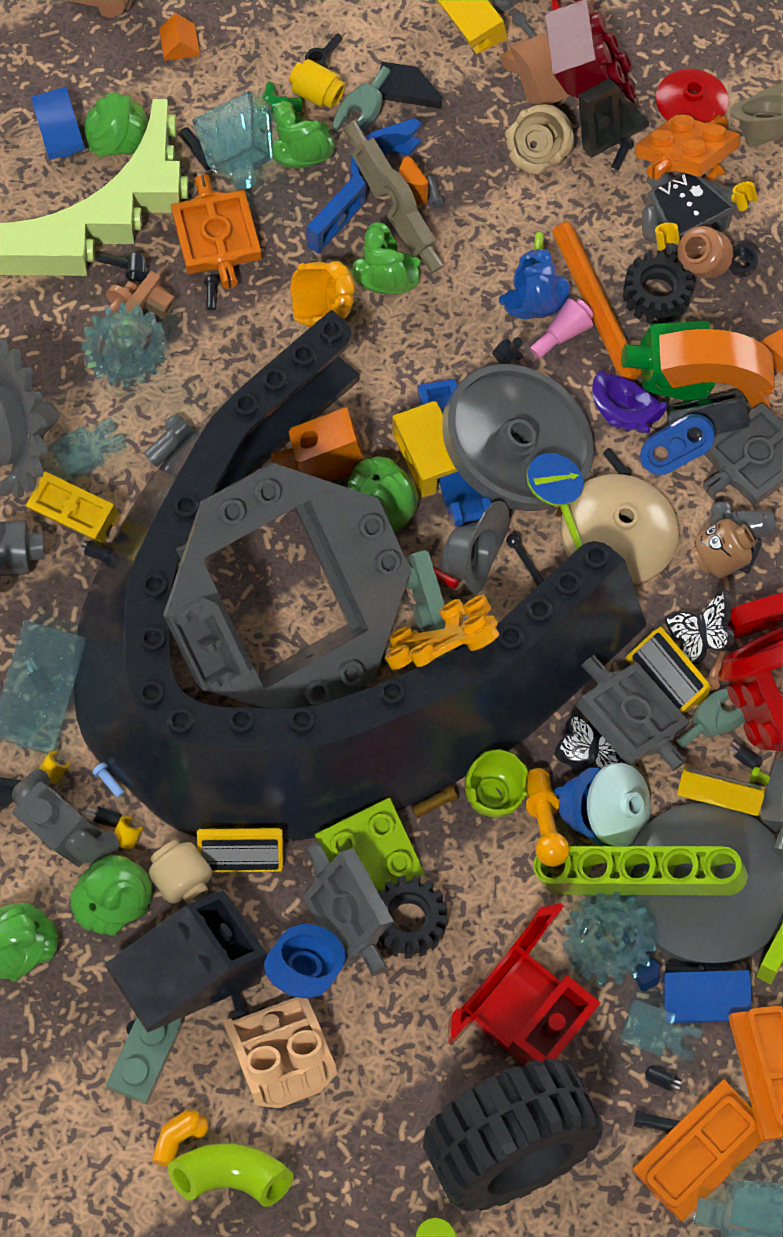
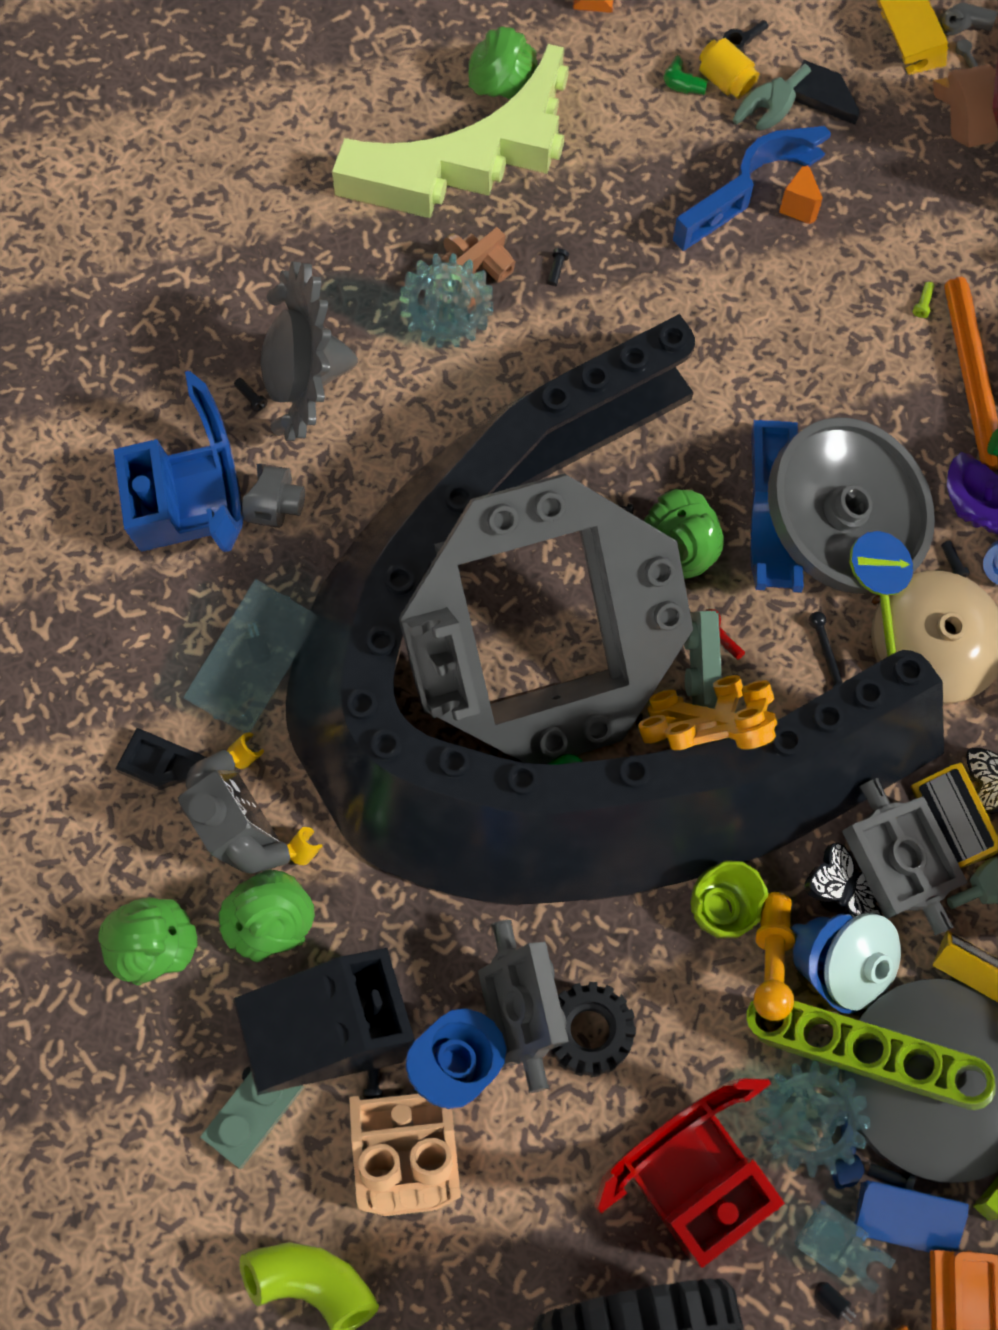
camera: 15 degrees right, 5 degrees up
(58, 123) = (442, 49): blue slope -> none
(73, 507) = (344, 467): yellow hinge -> none
(83, 451) = (372, 406): clear light blue plate -> none
(96, 550) = (357, 518): black piece -> none
(105, 816) = (286, 820): black piece -> none
(107, 778) = (301, 779): light blue piece -> none
(134, 264) = (482, 217): black hand -> none
(175, 433) = (479, 408): dark grey arm -> none
(175, 1131) = (262, 1213): light orange arm -> none
(180, 872) = (348, 910): tan head -> none
(194, 145) = (583, 109): black pin -> none
(216, 231) = (578, 201): orange plate -> none
(237, 137) = (627, 105): clear light blue torso -> none
(242, 849) = (421, 900): slope -> none
(300, 141) = (695, 124): bright green hair -> none
(321, 288) = (675, 288): light orange hair -> none
(323, 447) = (630, 466): orange torso -> none
(377, 840) = (575, 935): lime hinge -> none
(384, 268) = (750, 280): bright green hair -> none
(385, 181) = (776, 186): dark tan piece -> none
(422, 445) = (742, 489): yellow panel -> none
(435, 199) = (825, 221): dark grey piece -> none
(447, 795) = (653, 899): pearl gold piece -> none
(475, 546) = (772, 617): dark grey piece -> none
(508, 350) = (864, 405): black hand -> none
(537, 287) = (913, 342): blue hair -> none
(548, 129) = (967, 169): tan hair -> none
(569, 322) = (941, 388): bright pink cone -> none

